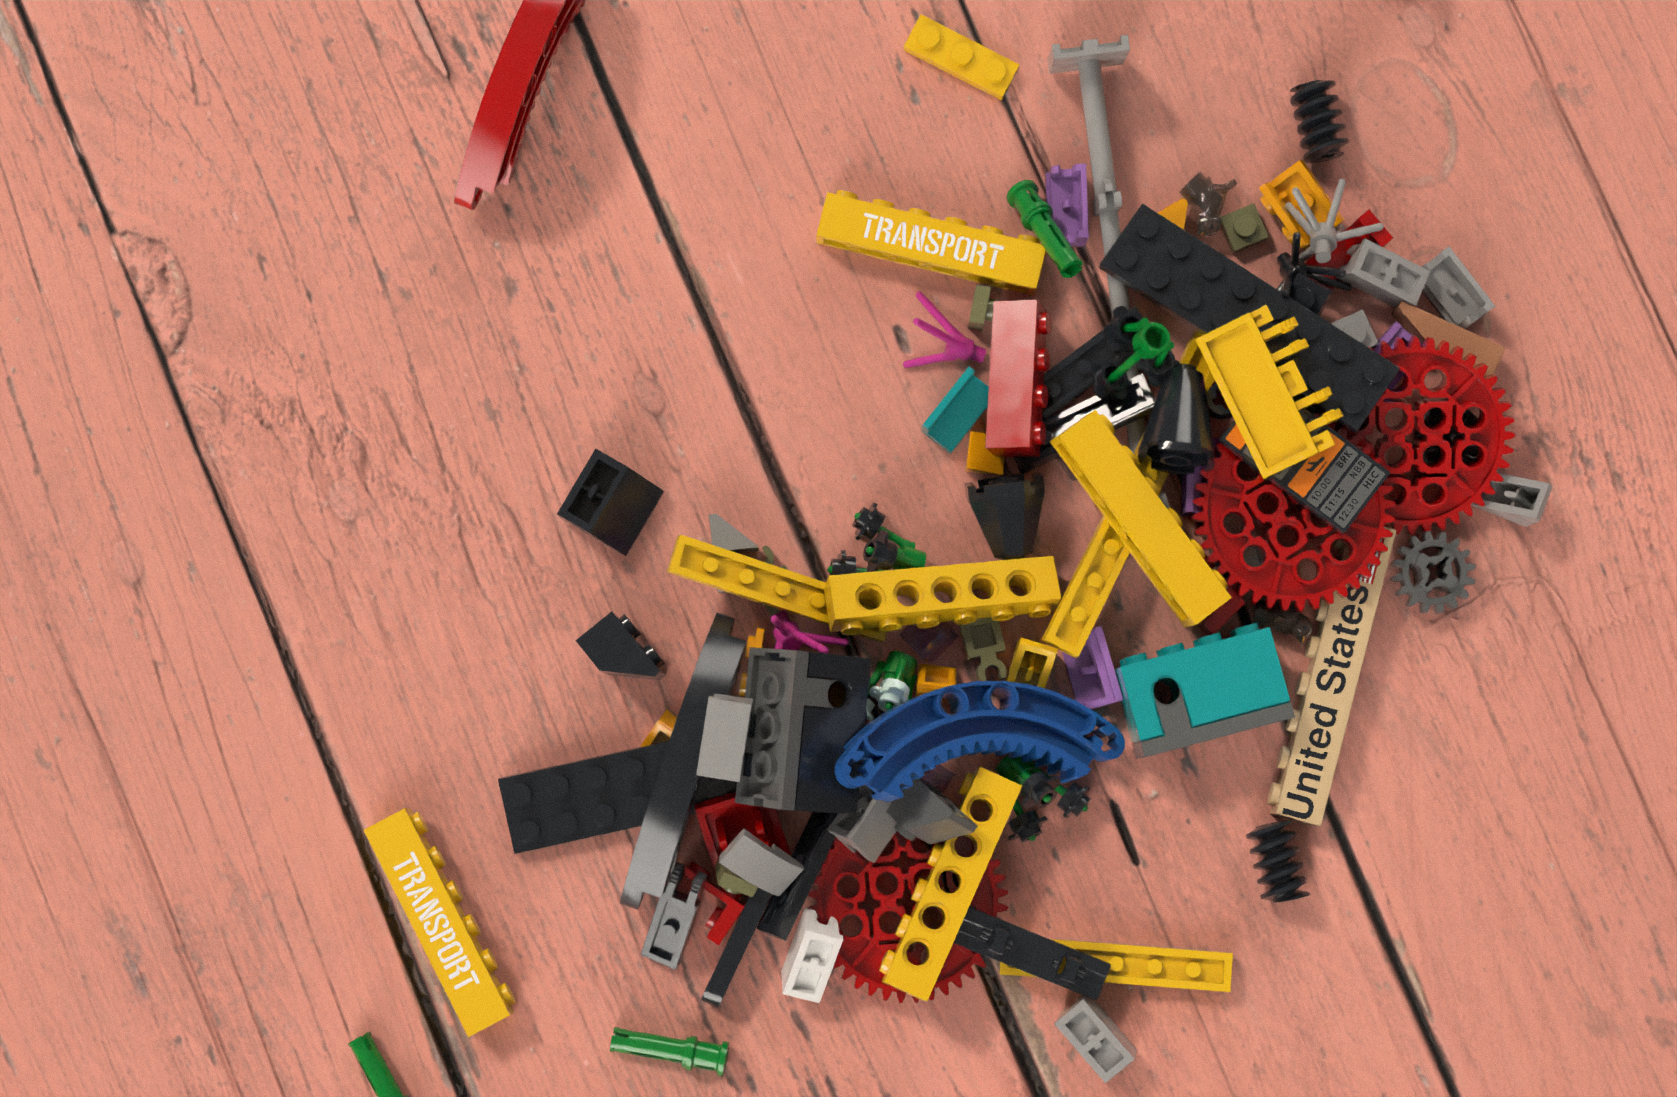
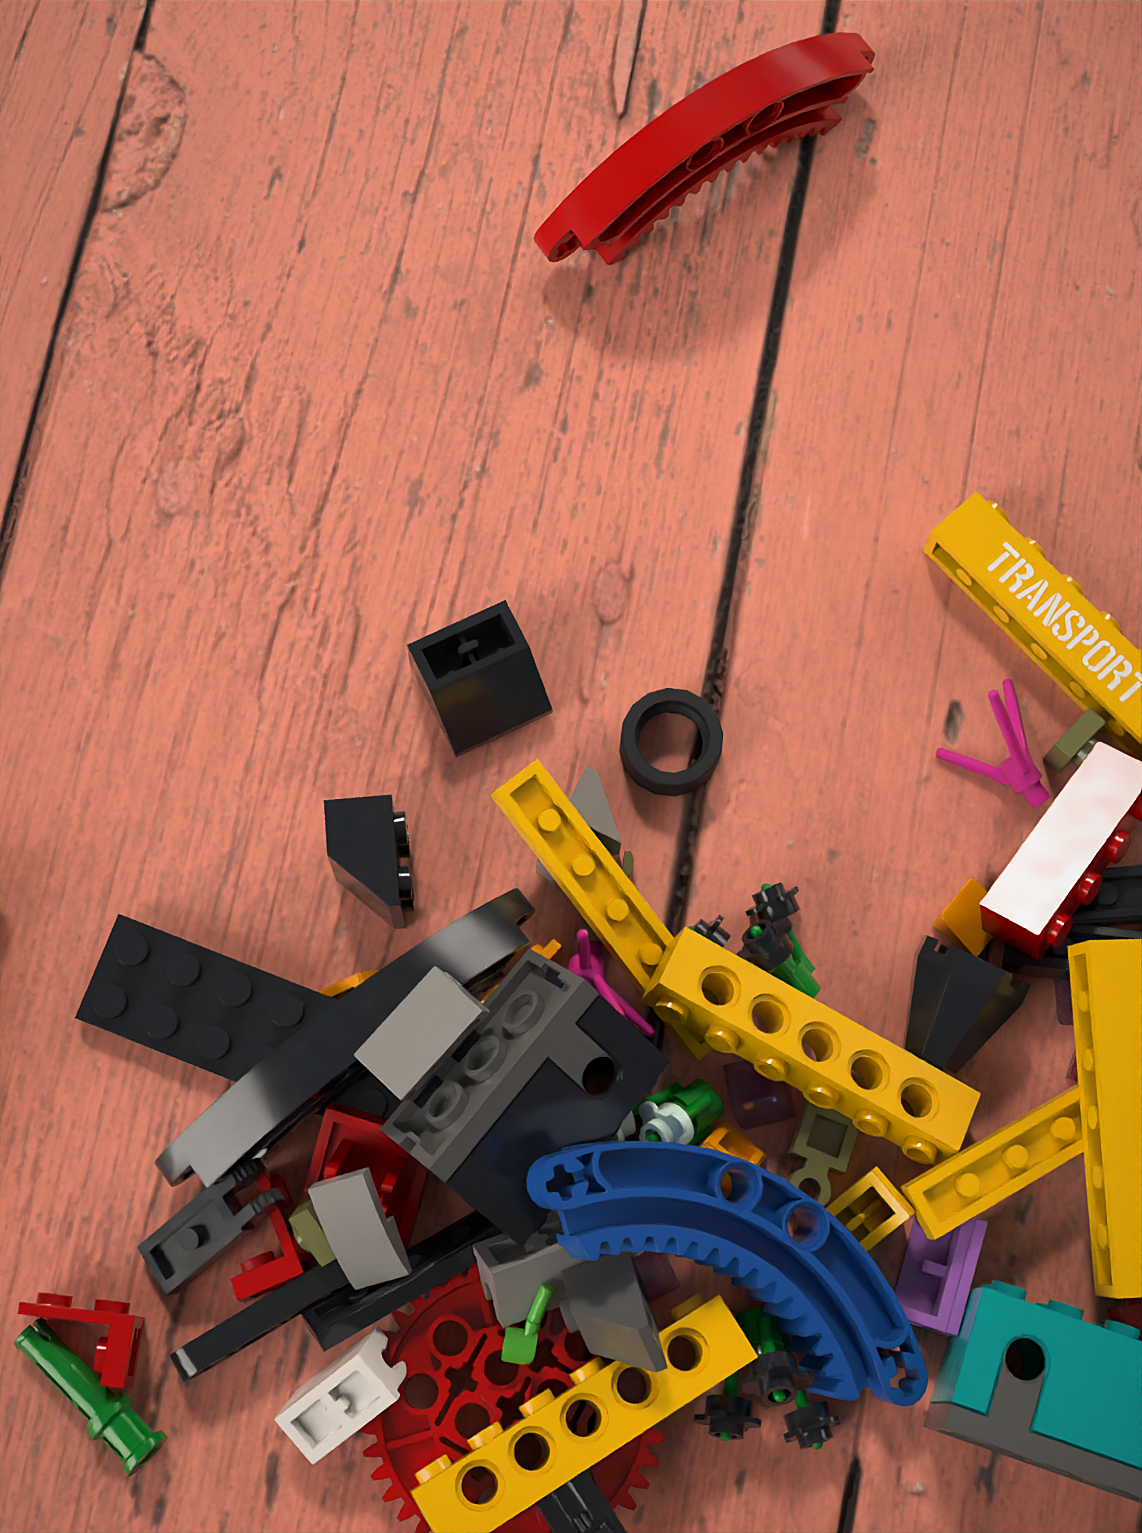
camera: 30 degrees right, 10 degrees down
(670, 1018) = (114, 1355): none -> red bracket
(733, 438) = (677, 702): none -> black tyre
(888, 864) = (521, 1343): none -> bright green hand
(957, 411) = (968, 844): teal panel -> none

